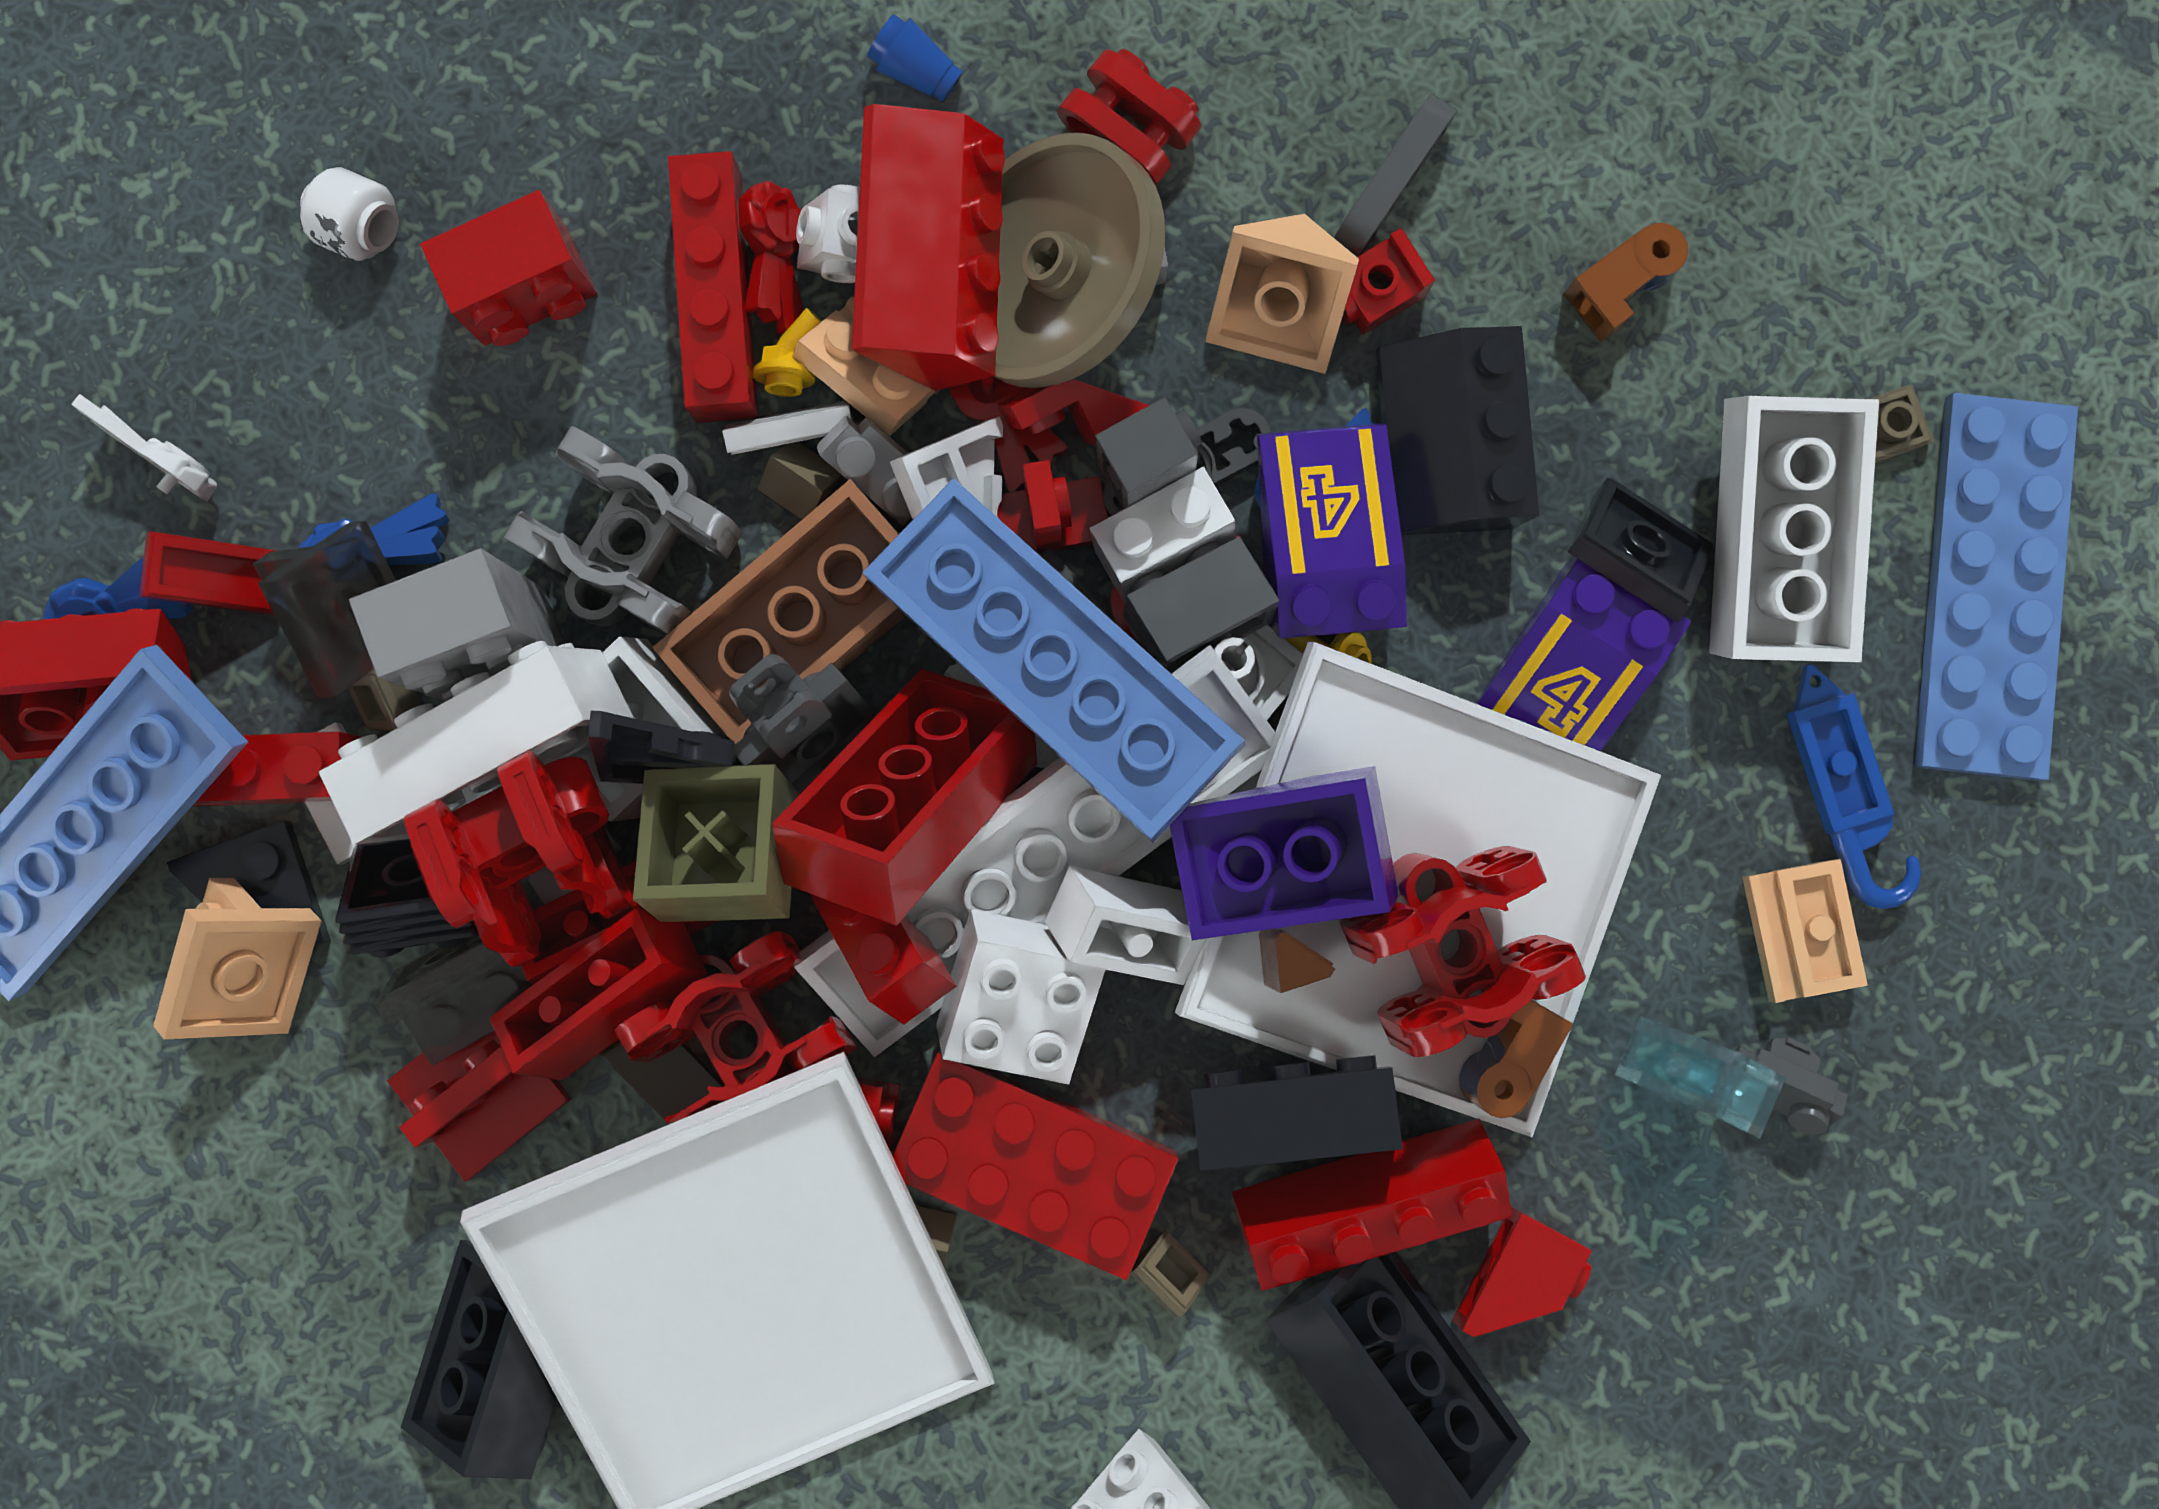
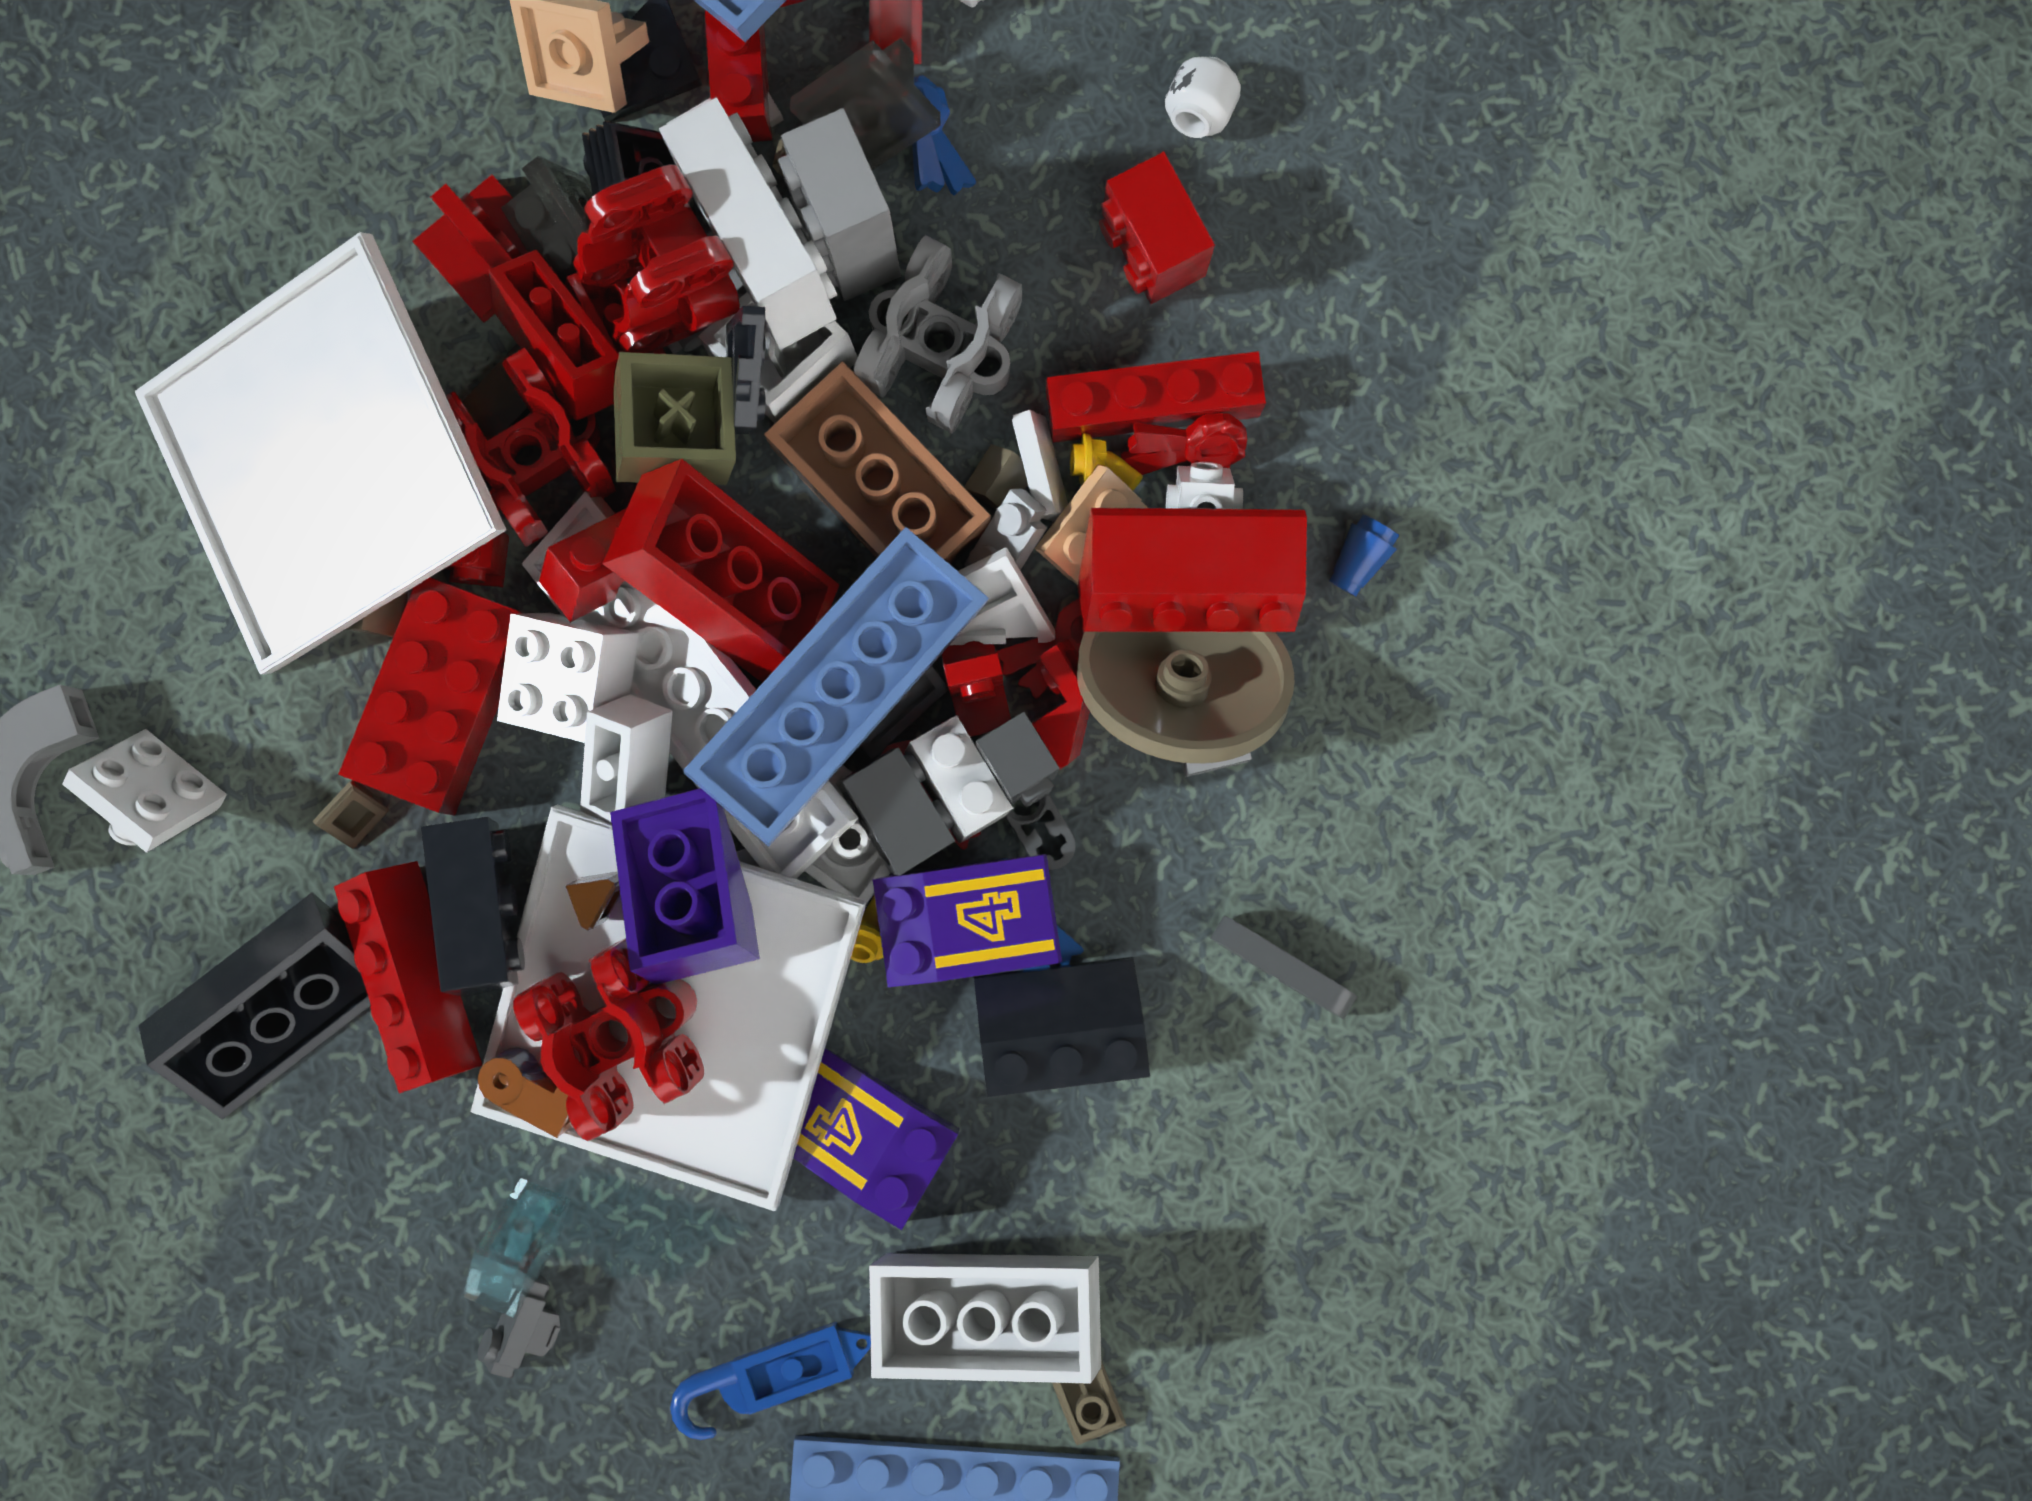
camera: 90 degrees right, 0 degrees up
(478, 1386) = (241, 259): black slope -> none
(797, 720) = (781, 483): dark grey plate -> none
(1126, 82) = (1353, 731): red brick -> none
(1283, 292) = (1176, 873): light nougat slope -> none
(1403, 271) = (1191, 979): red brick -> none
(1522, 1276) = (354, 1107): red slope -> none
(1636, 265) = (1220, 1185): dark orange leg -> none
(1641, 549) = (965, 1188): black tile -> none
(1804, 931) = (649, 1340): light nougat plate -> none

